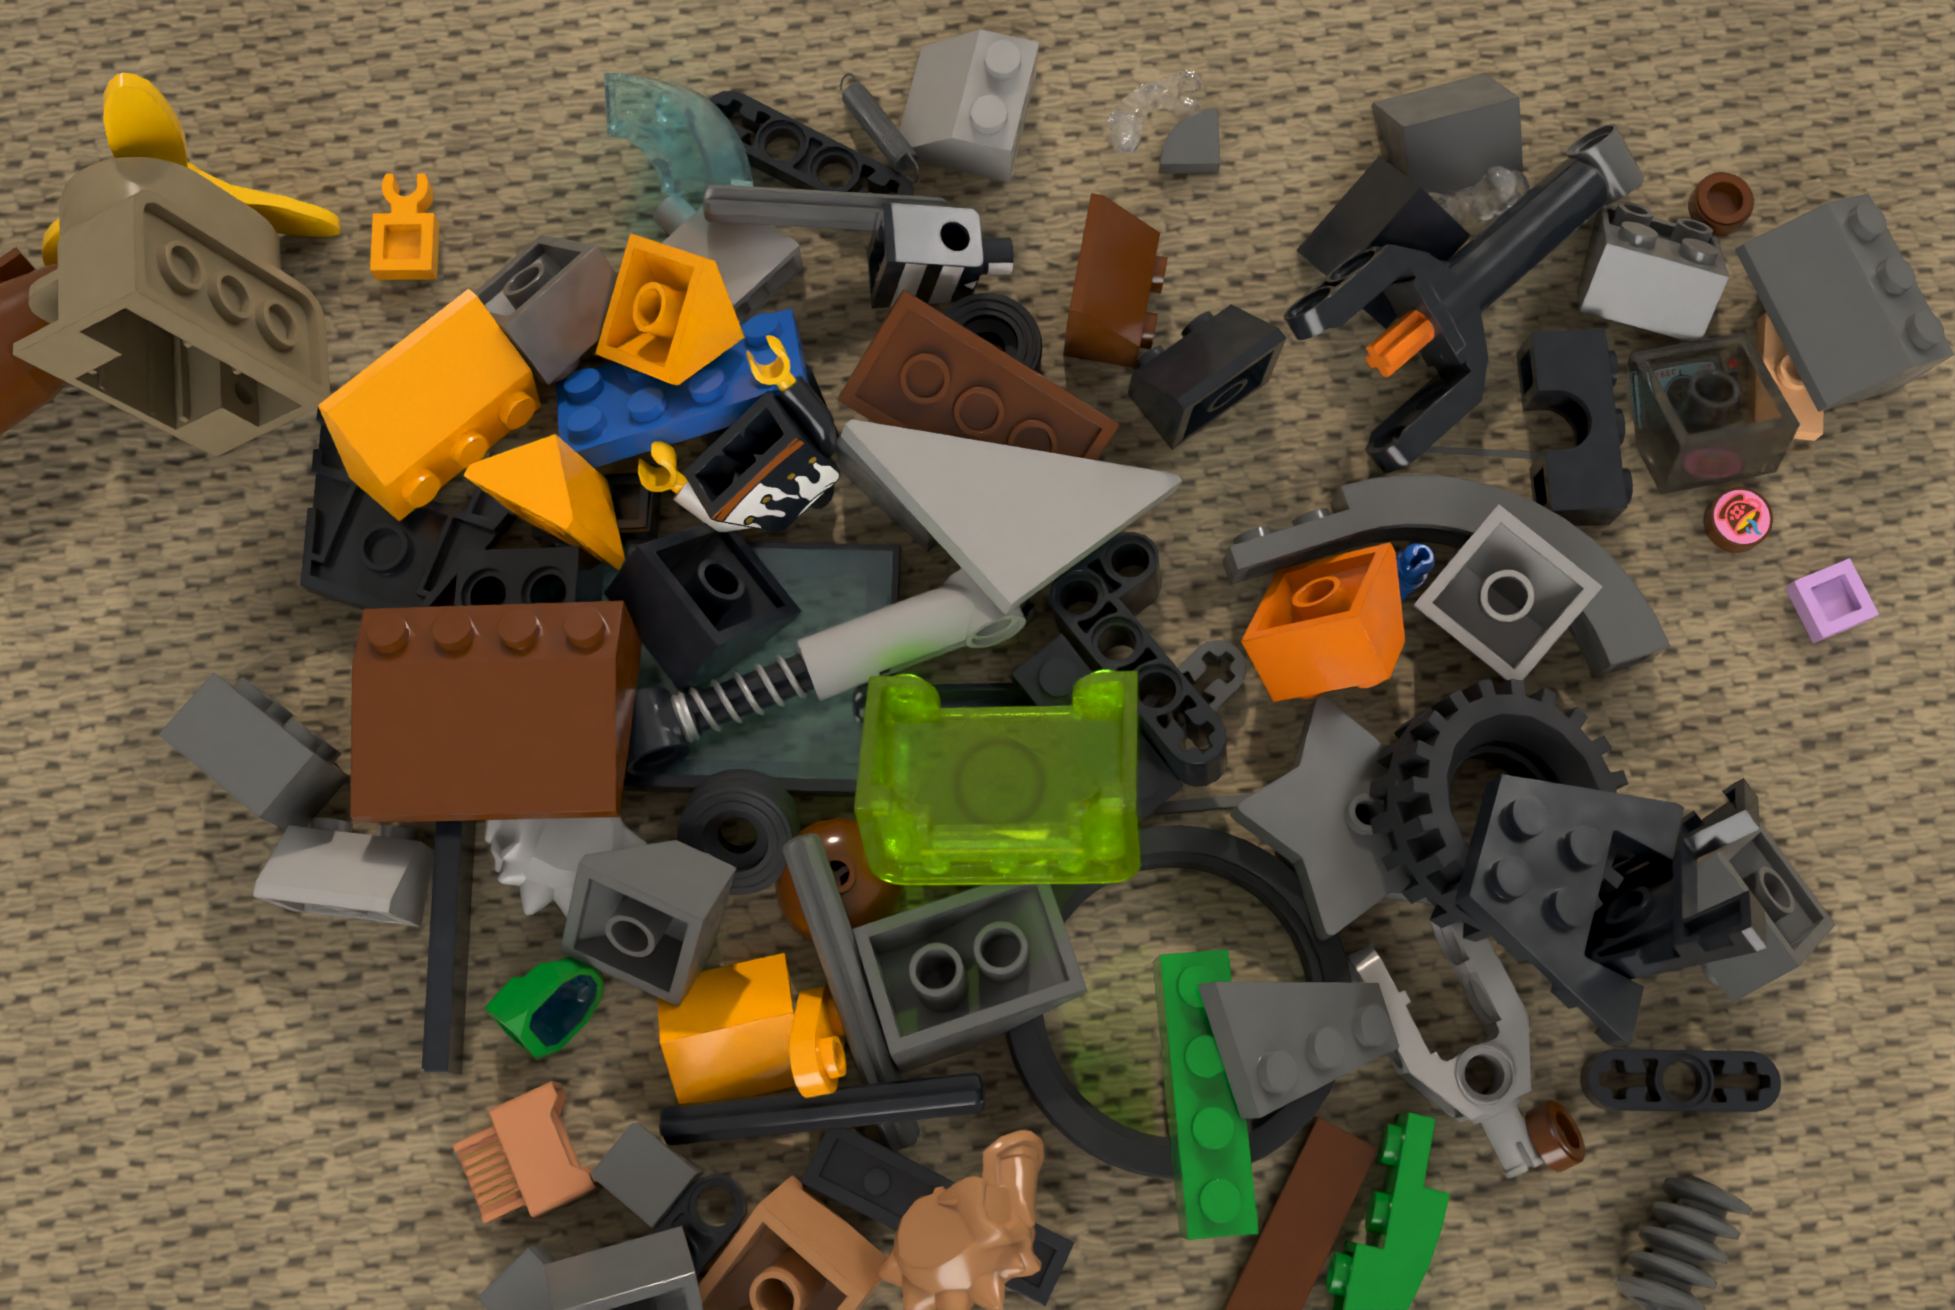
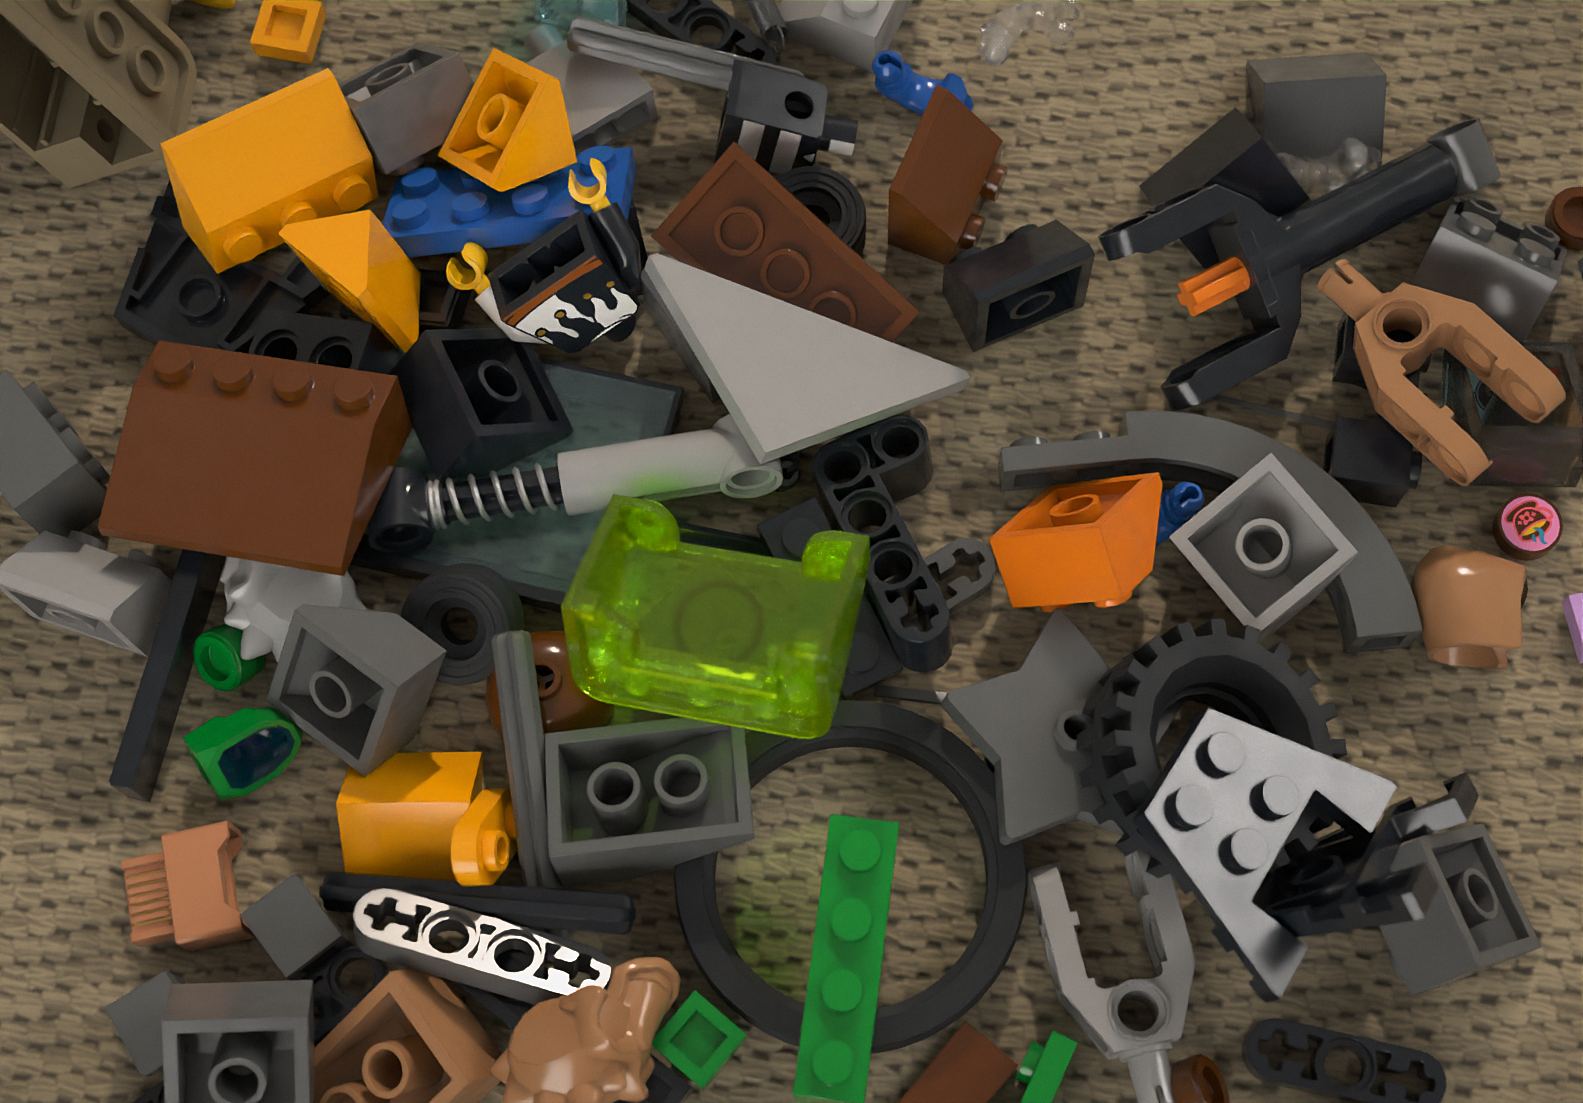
camera: 20 degrees right, 5 degrees down
(501, 917) = (220, 660): none -> green tile
(842, 1146) = (486, 940): none -> dark grey beam
(1058, 195) = (909, 89): none -> blue piece
(1072, 1195) = (699, 1040): none -> green tile
(1192, 145) = (1058, 69): dark grey tile -> none
(1293, 1036) = (947, 922): dark grey wing -> none
(1657, 349) = (1436, 323): none -> medium nougat piece
(1707, 610) = (1469, 606): none -> medium nougat piece

